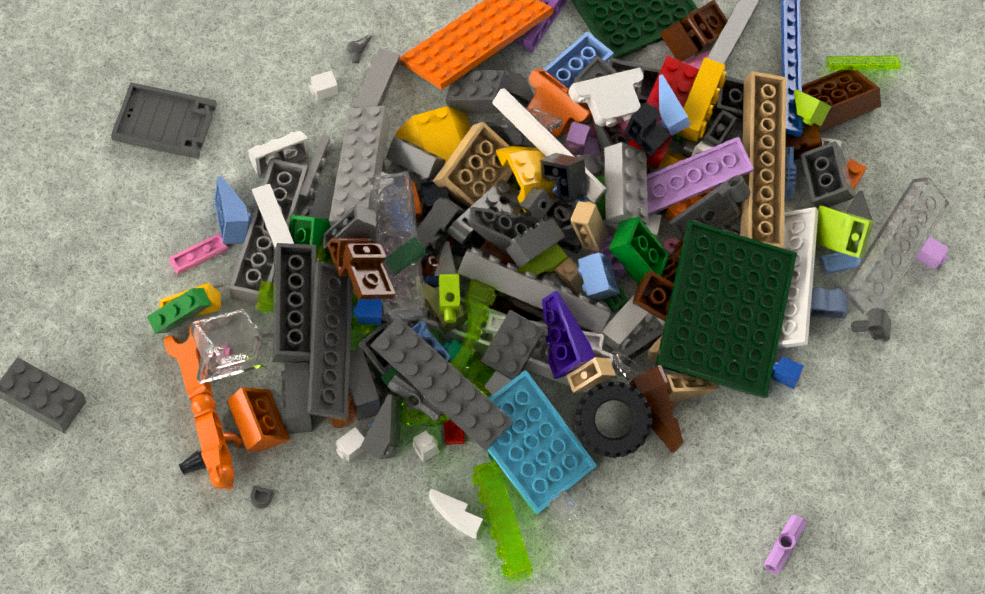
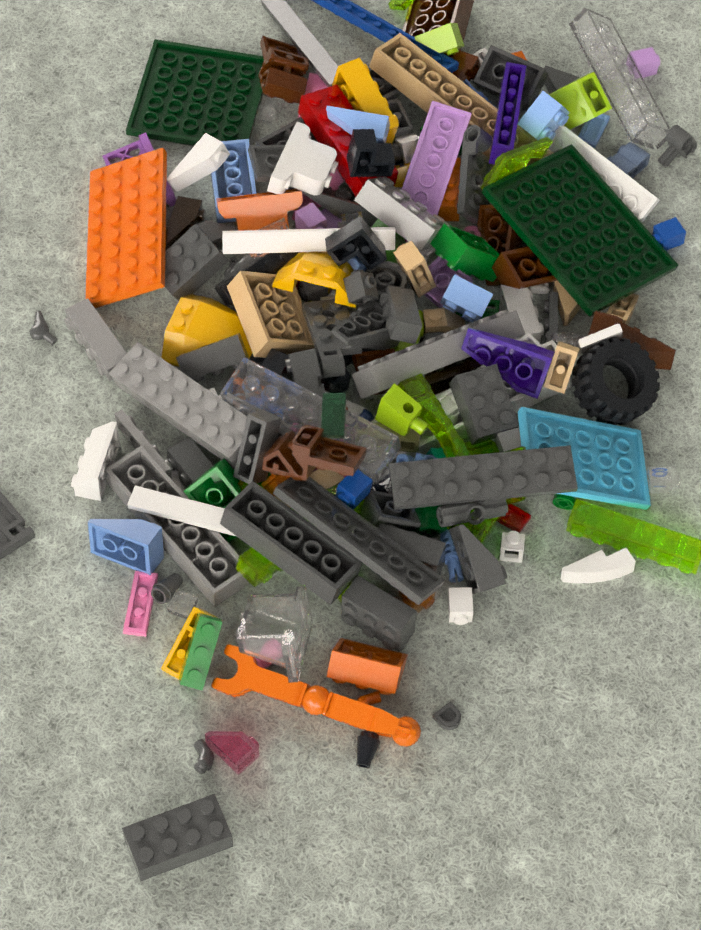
camera: 50 degrees left, 5 degrees down
(113, 371) = (206, 757): none -> dark grey arm
(130, 384) = (233, 748): none -> clear pink slope
(217, 259) = (164, 590): none -> dark grey cone
(323, 85) = (58, 381): white brick -> none
(519, 62) = (184, 215): none -> dark brown slope
(562, 37) = (199, 162): none -> white slope
(641, 386) = (589, 341): none -> white tile
(735, 224) = (516, 159): none -> clear neon green wing
(776, 192) = (508, 110): none -> dark purple brick
(799, 218) = (544, 117): none -> light blue brick

